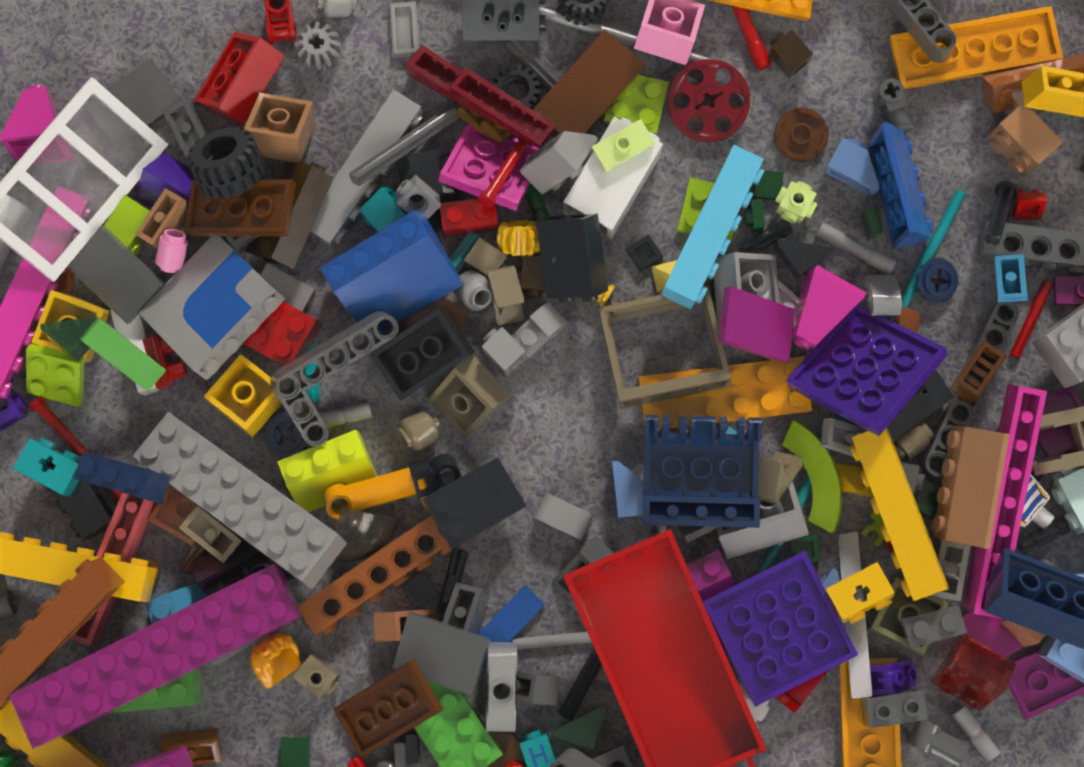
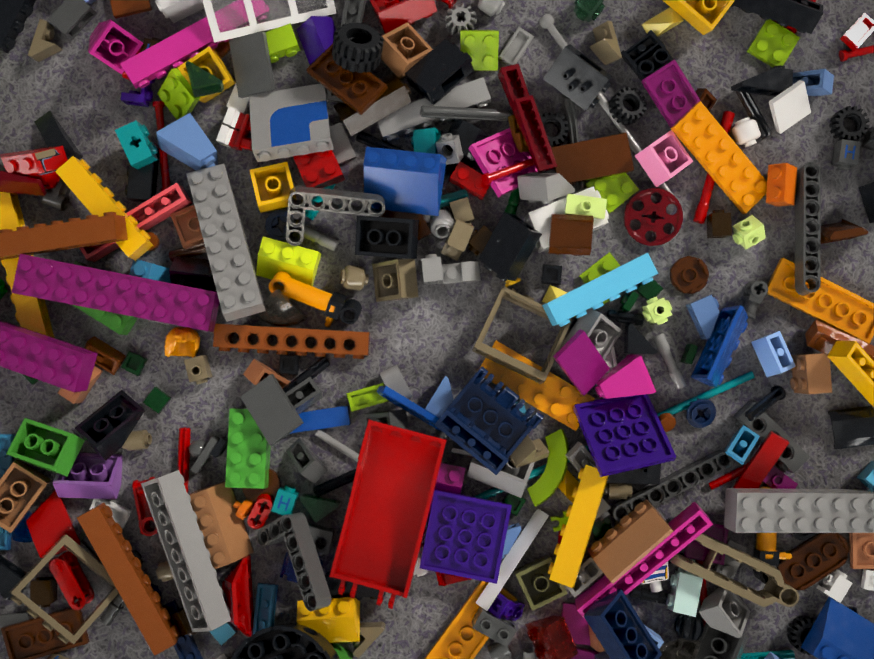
camera: 30 degrees right, 5 degrees up
(109, 421) = (187, 143): none -> medium blue slope
(122, 354) = (221, 112): bright green tile -> none
(122, 477) = (170, 181): dark blue brick -> none
(167, 213) = (300, 56): medium nougat slope -> none
(171, 250) = (292, 74): bright pink brick -> none
(210, 534) = (195, 248): dark tan slope -> none
(234, 729) = (134, 363): none -> dark green tile
(322, 257) = (372, 141): none -> black axle
(339, 120) = (440, 71): none -> black piece
(365, 63) = (482, 48): none -> lime plate
(388, 708) = (221, 416): reddish brown tile -> none
(474, 503) = (352, 341): black slope -> none
(501, 668) = (297, 444): light grey beam -> none
(518, 237) = (488, 213): yellow gear -> none
(540, 556) = (365, 397): none -> lime plate
(598, 528) = (408, 405): none -> blue tile
(631, 189) = (570, 234): none -> reddish brown slope
(829, 36) = (748, 232): none -> yellowish green brick
(844, 593) = (514, 545): yellow brick -> none
(883, 295) = (664, 398): light grey beam -> none
(933, 626) = (549, 600): dark grey plate -> none
(965, 151) = (773, 354): none -> light blue brick
(968, 387) = (671, 486): reddish brown slope -> none
(1029, 205) = (784, 410): red tile -> none
(1049, 281) = (762, 462): none -> red tile

